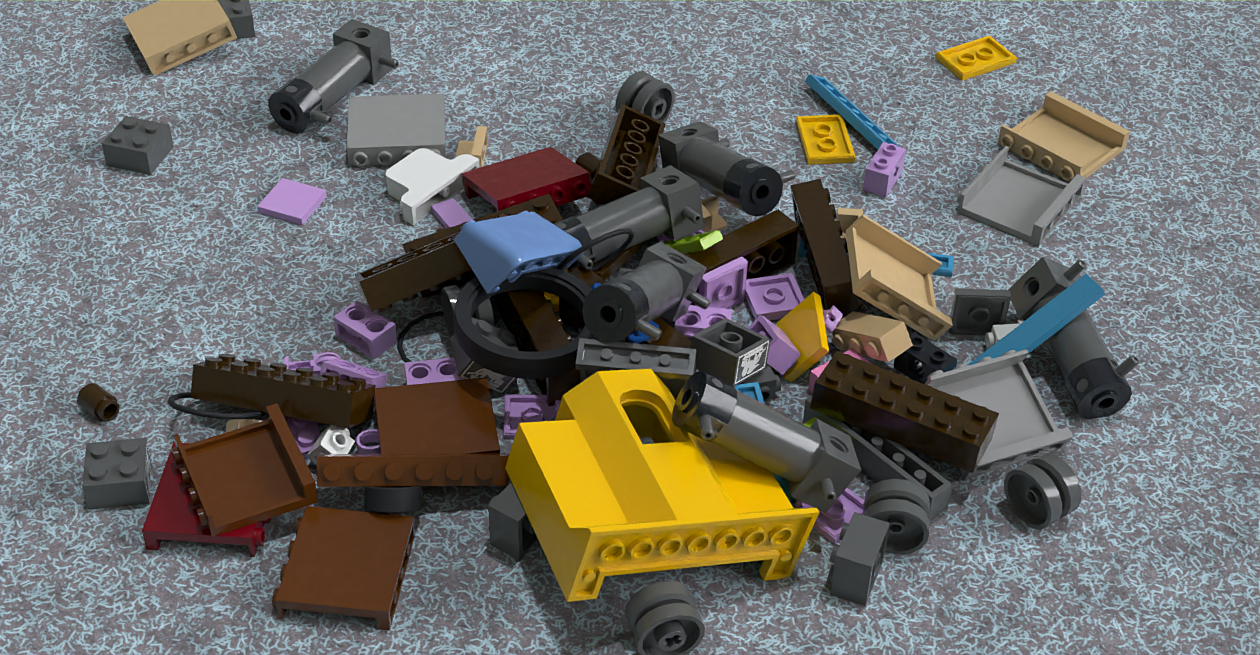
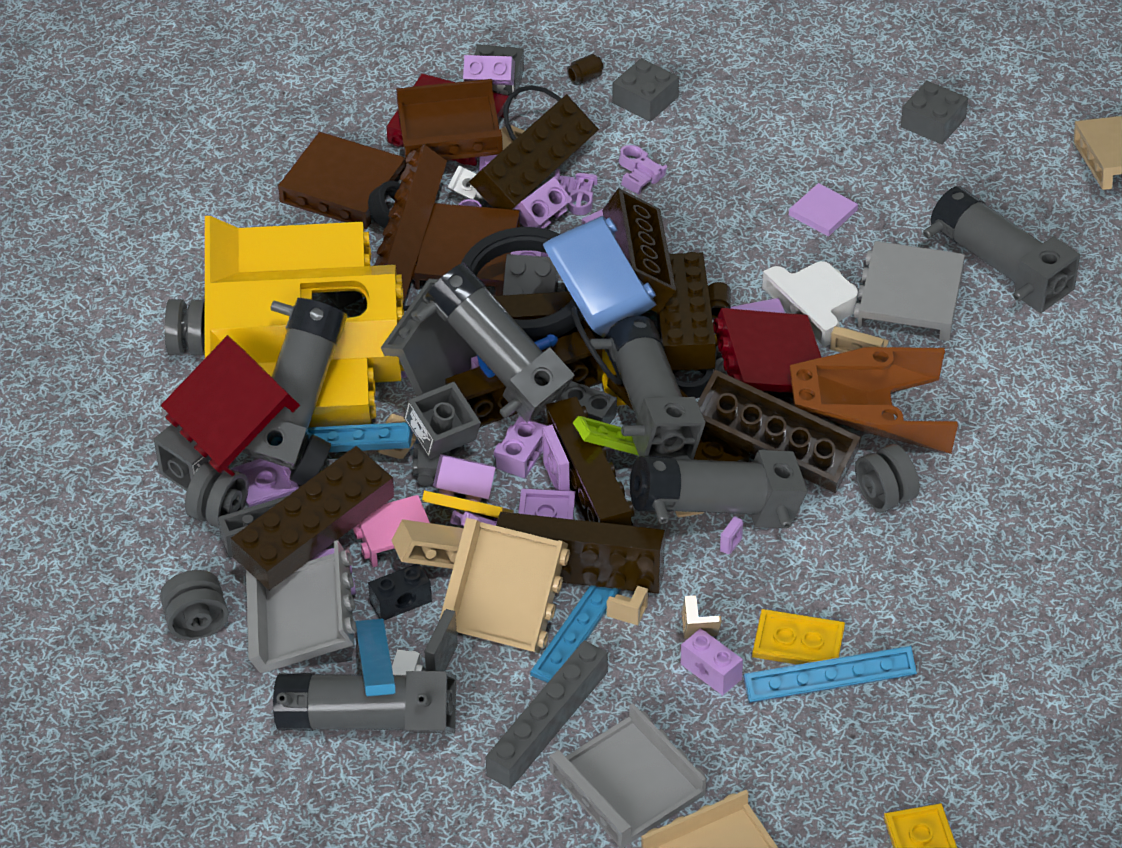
camera: 110 degrees right, 5 degrees up
(133, 344) = (645, 89): none -> dark grey brick
(151, 447) = (498, 68): none -> lavender brick
(263, 323) = (642, 169): none -> lavender piece
(559, 136) = (858, 387): none -> dark orange windscreen
(832, 473) = (226, 404): none -> dark red panel
(856, 175) = (693, 623): none -> tan panel
(990, 243) = (546, 714): none -> dark grey brick

